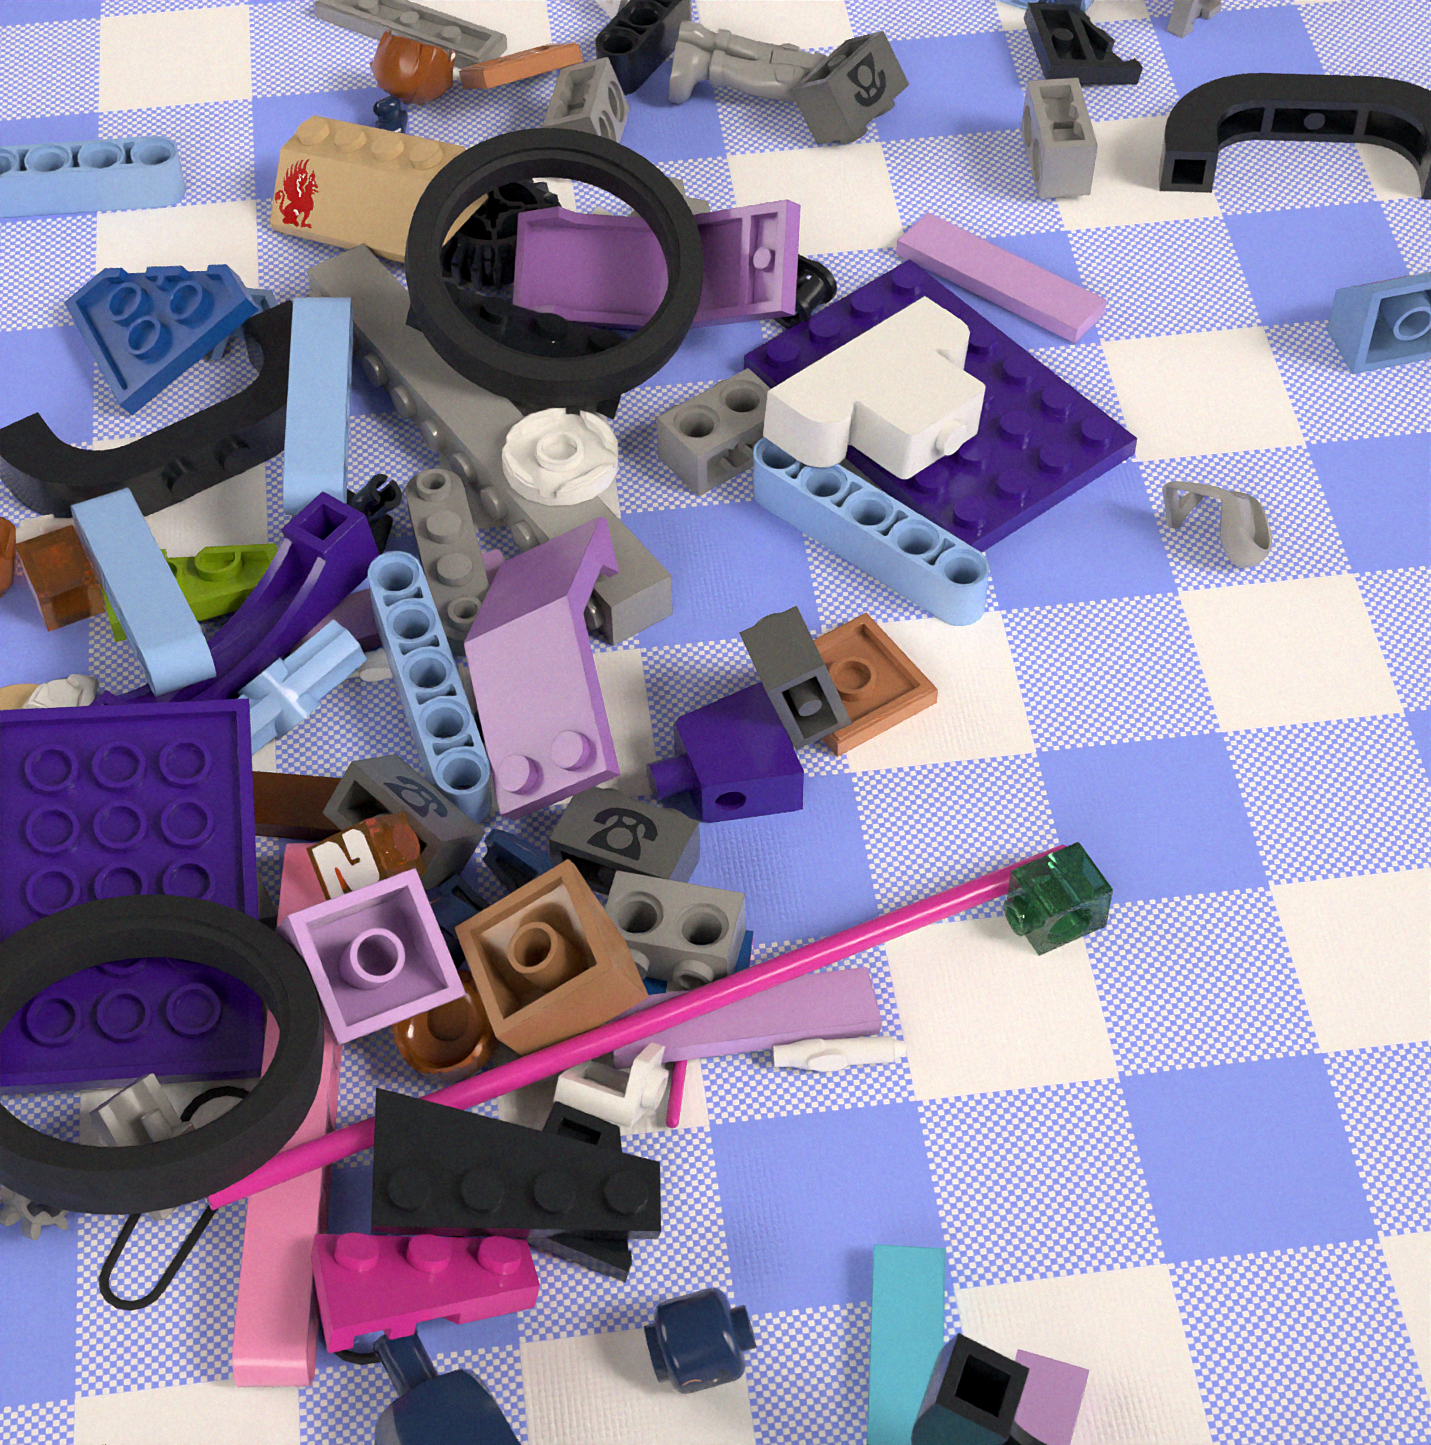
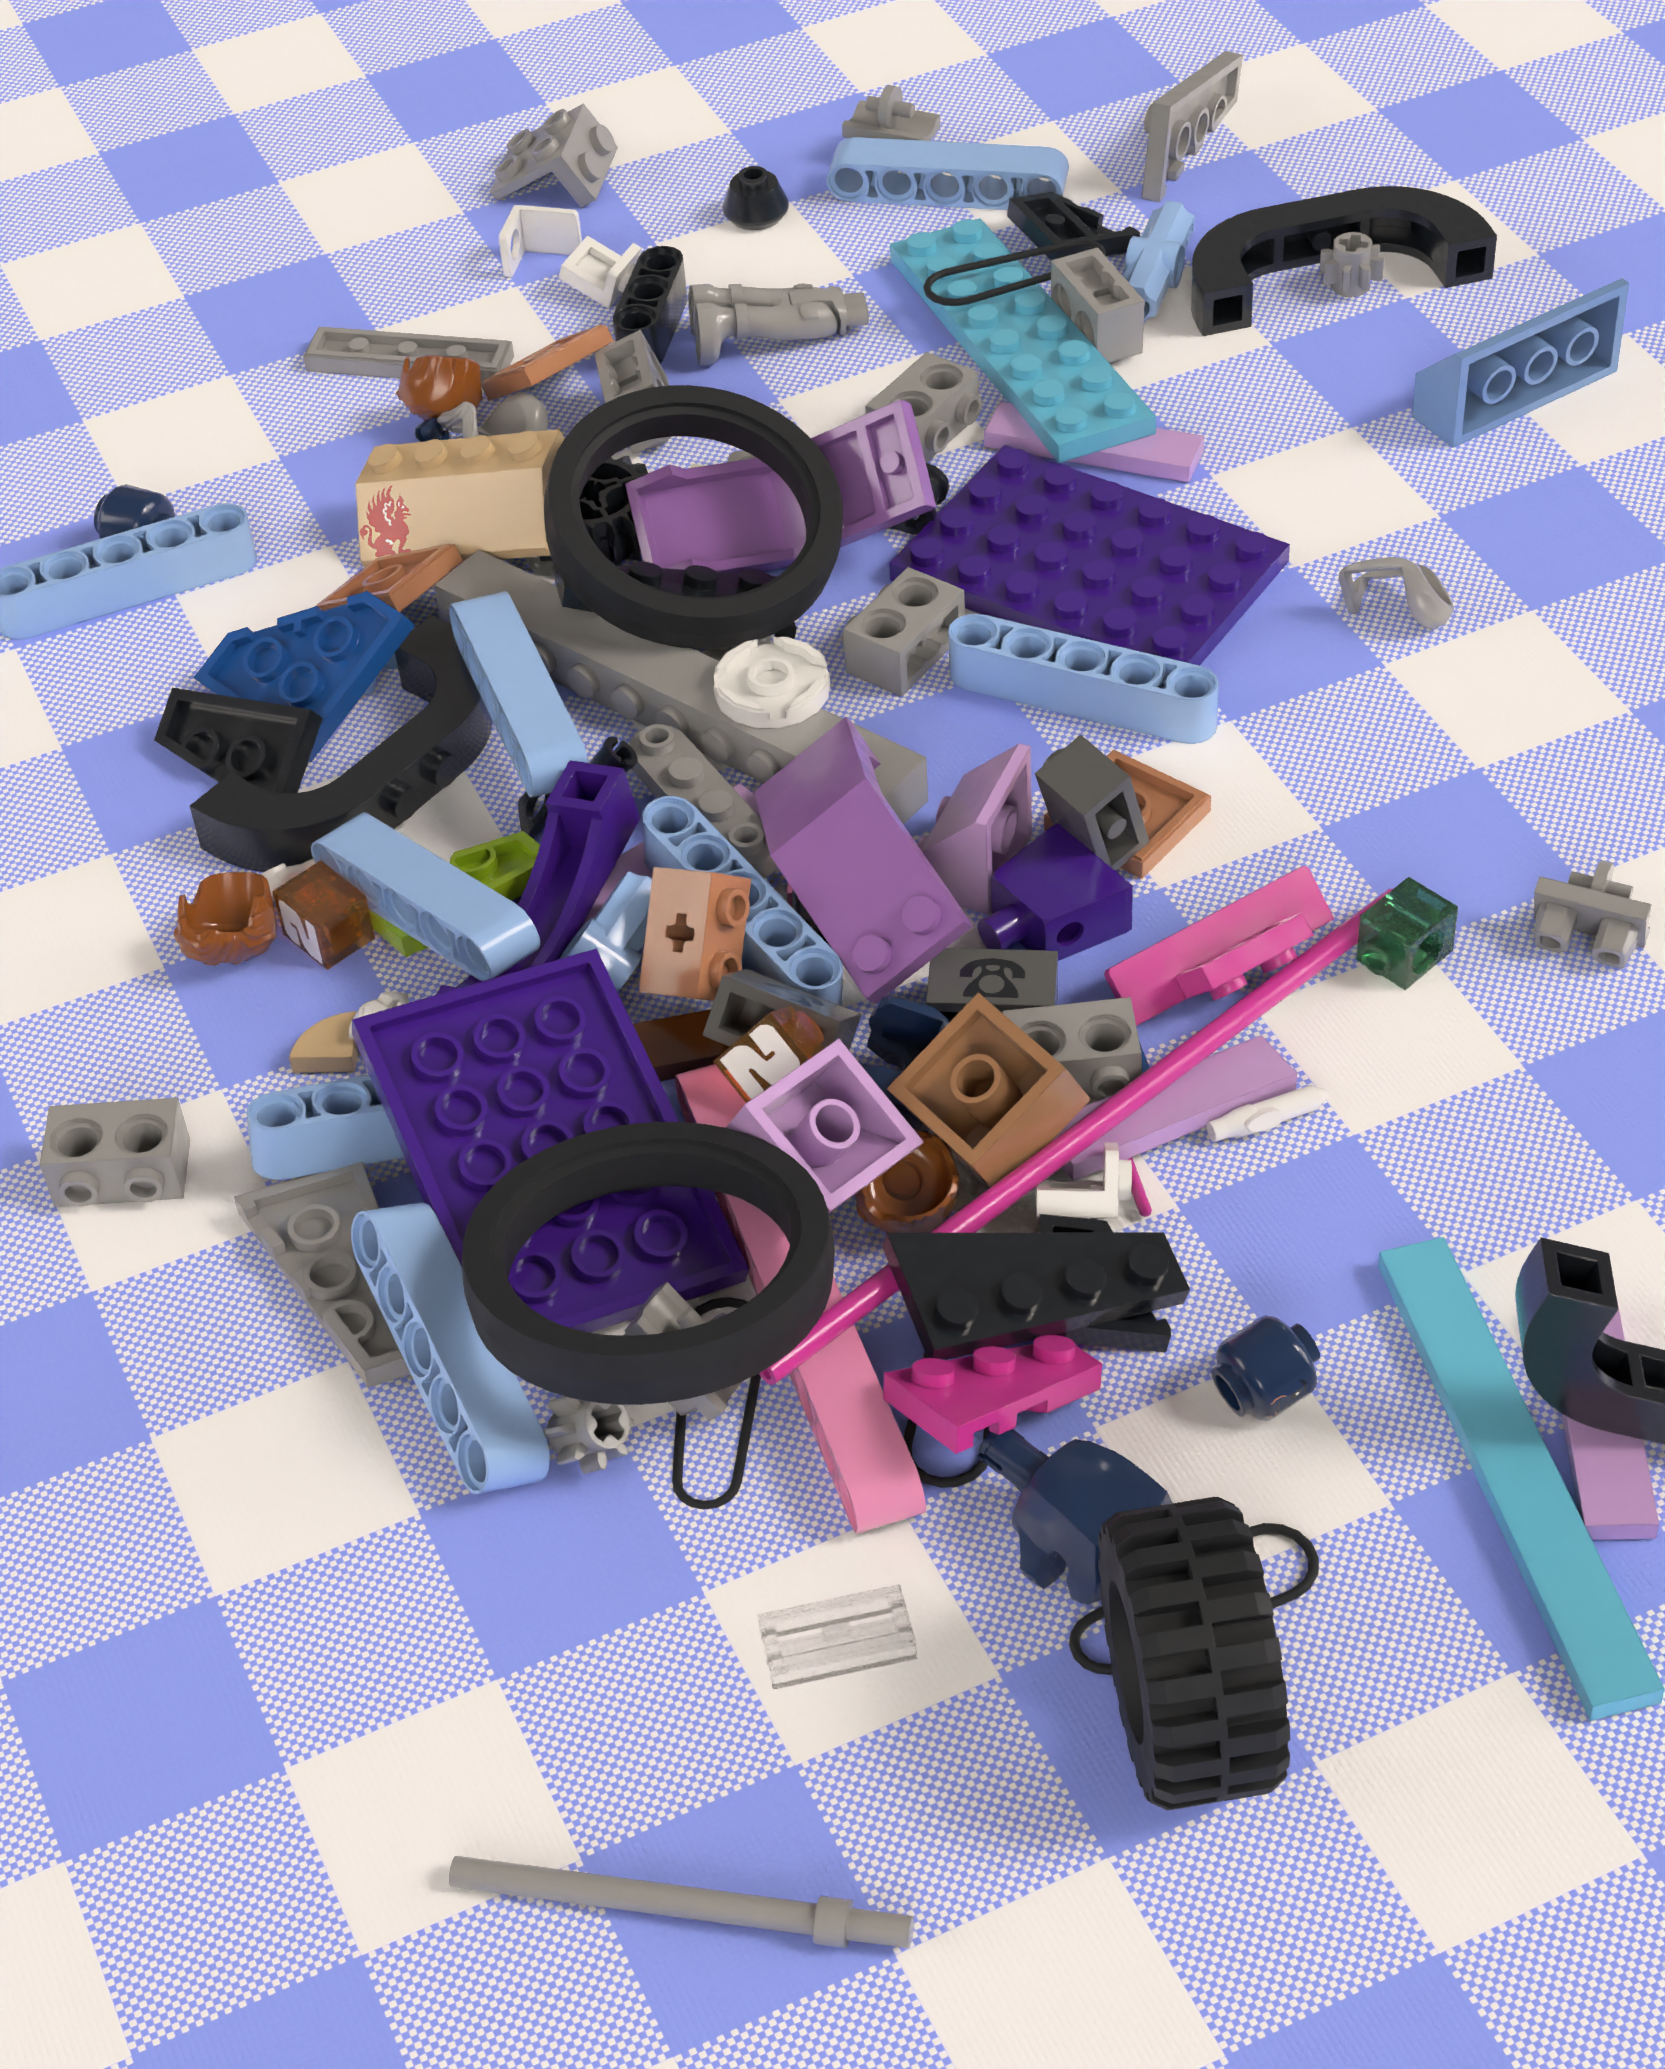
camera: 15 degrees left, 5 degrees down
(70, 381) = (240, 736): none -> black wing
(84, 119) = (130, 508): none -> dark blue head
(277, 254) = (398, 577): none -> nougat tile
(362, 700) = (693, 932): none -> nougat brick
(466, 121) = (513, 415): none -> light grey piece
(687, 667) = (982, 827): none -> lavender slope
(850, 89) = (878, 309): dark grey brick -> none
(850, 202) = (941, 397): none -> light grey brick
(871, 859) = (1223, 946): none -> dark pink bracket
(886, 393) = (1053, 554): white brick -> none
(978, 155) = (1025, 344): none -> medium azure plate
(986, 65) = (1000, 260): none -> black piece
(1143, 101) = (1158, 256): none -> light blue piece
(1276, 950) = (1592, 907): none -> light grey hips
(1333, 153) = (1351, 264): none -> light grey gear

